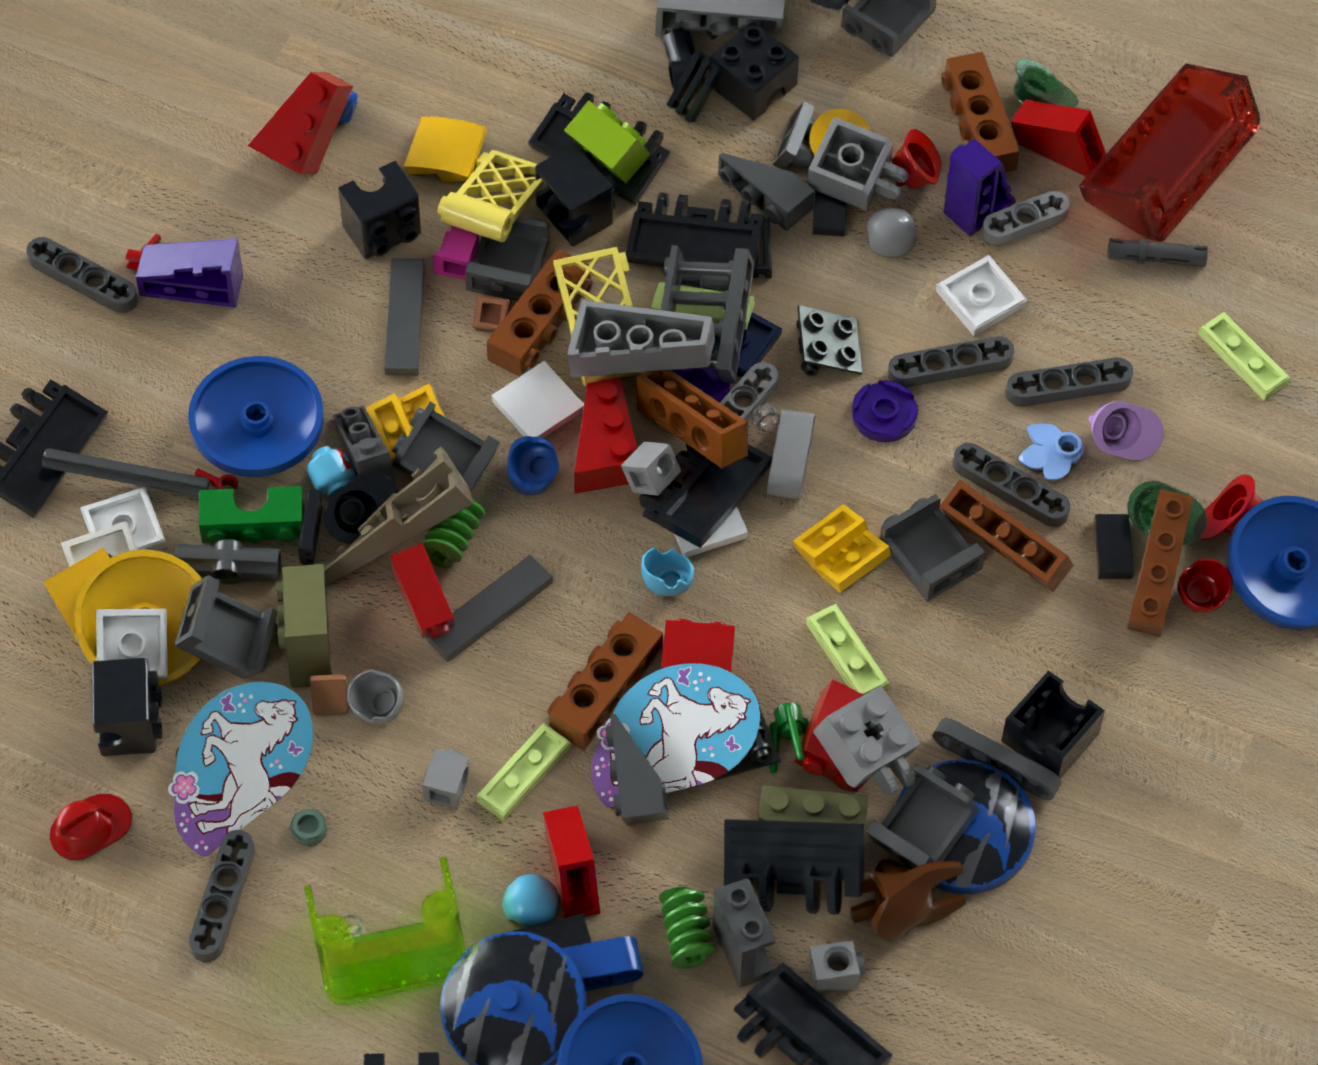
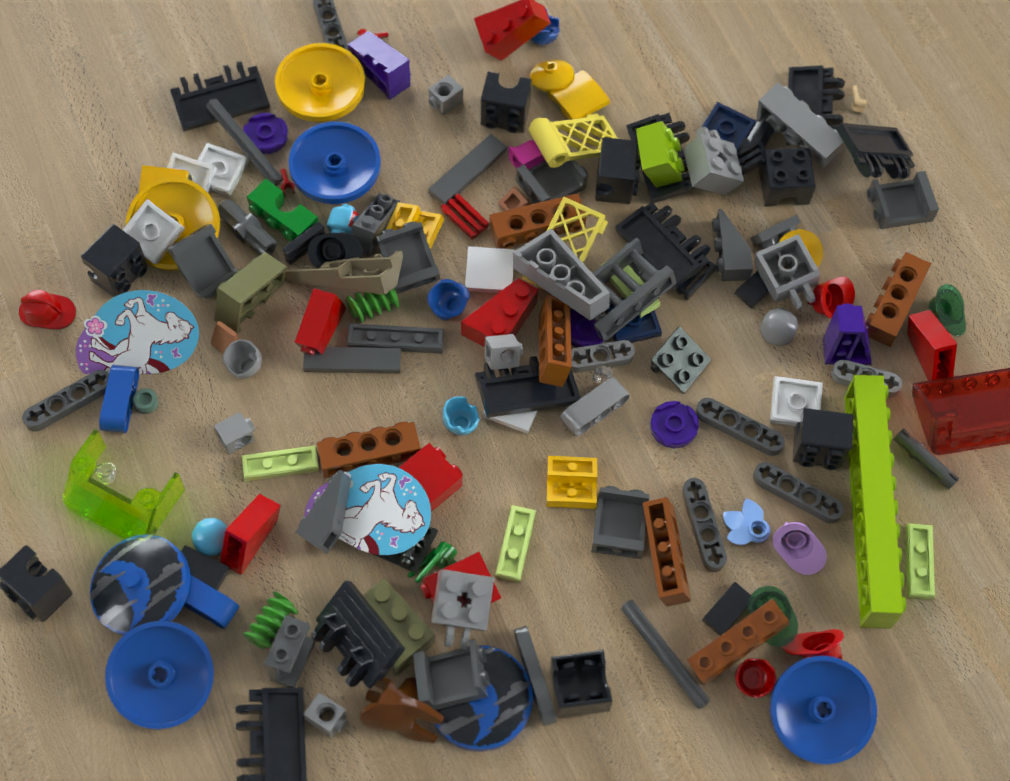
camera: 40 degrees right, 5 degrees up
(136, 442) = (267, 132): none -> dark purple tile
(145, 343) = (320, 82): none -> yellow dish
(281, 846) = (119, 398): none -> blue beam
(300, 243) = (445, 95): none -> light grey brick
(392, 142) = (552, 75): none -> yellow dish
(453, 363) = (446, 209): none -> red tile
(509, 549) = (407, 338): none -> dark grey tile
(635, 68) = (729, 123): none -> dark blue tile
(666, 110) = (713, 163): none -> light grey hinge
(1048, 306) = (822, 438): none -> black piece
(1097, 636) = (665, 654): none -> dark grey axle
(1152, 329) = (874, 504): none -> lime brick

